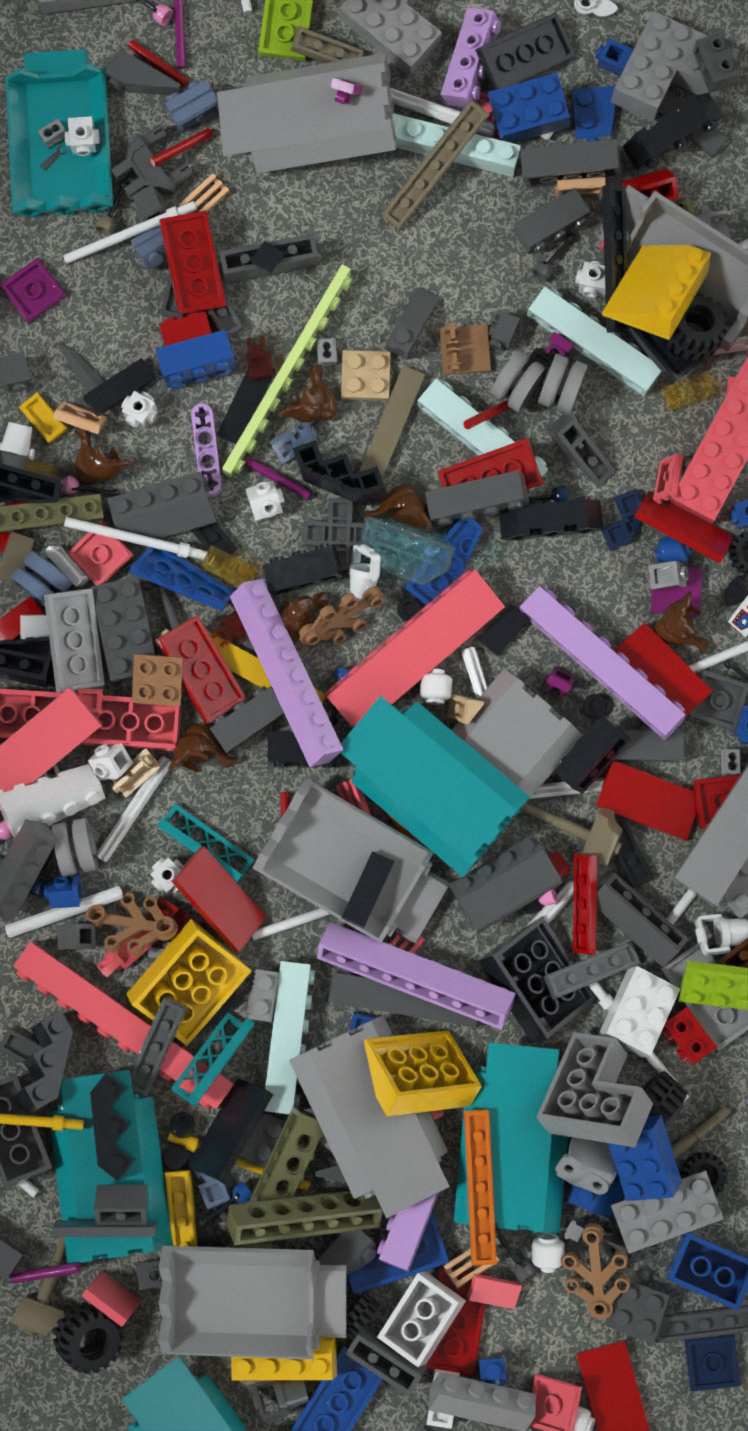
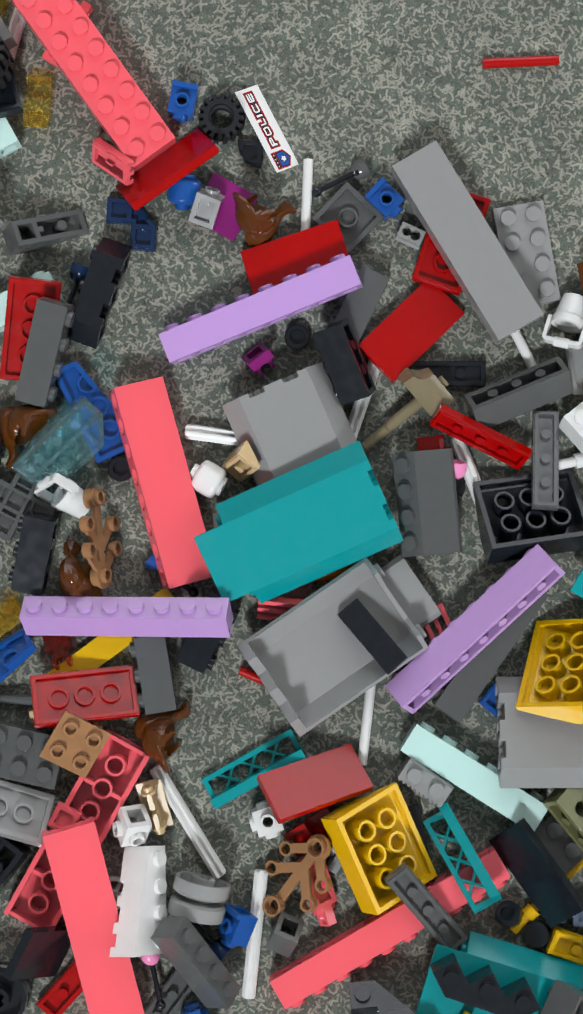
camera: 70 degrees left, 5 degrees up
(503, 630) = (183, 388): black tile -> none

